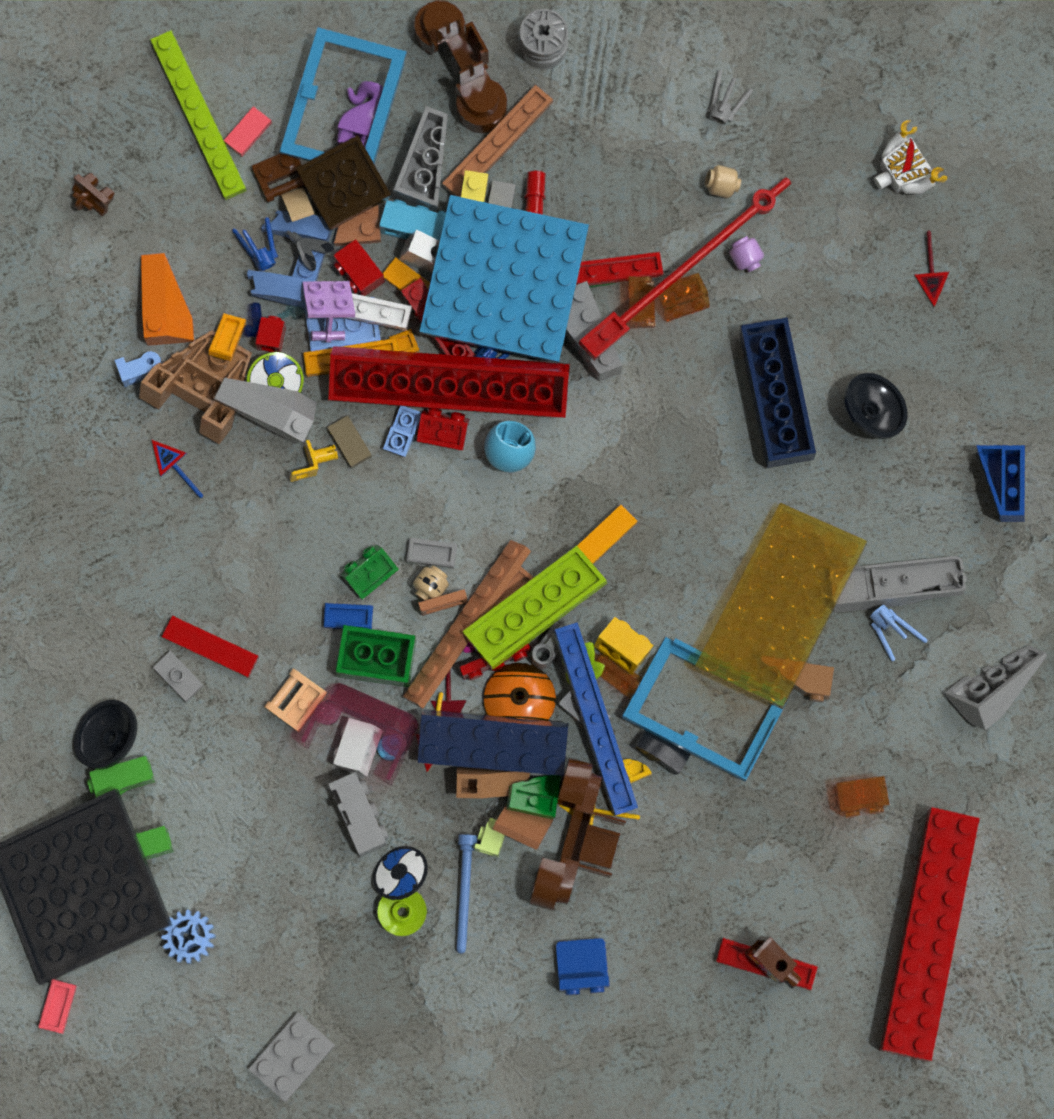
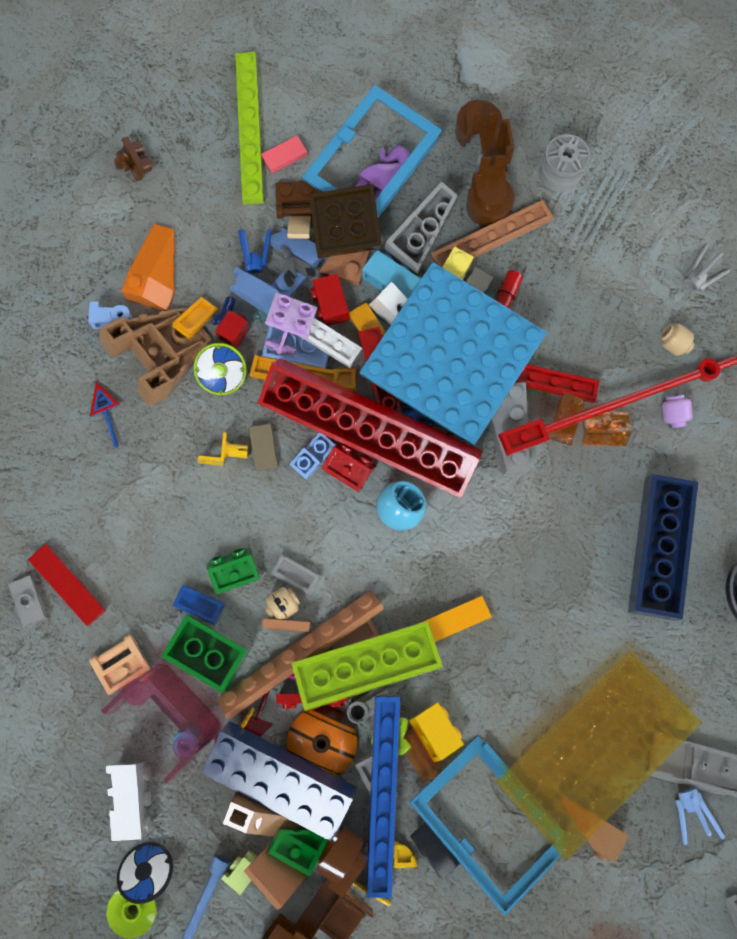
camera: 20 degrees right, 0 degrees up
(274, 408) = (209, 394): light grey wedge -> none
(357, 747) = (152, 734): white brick -> none

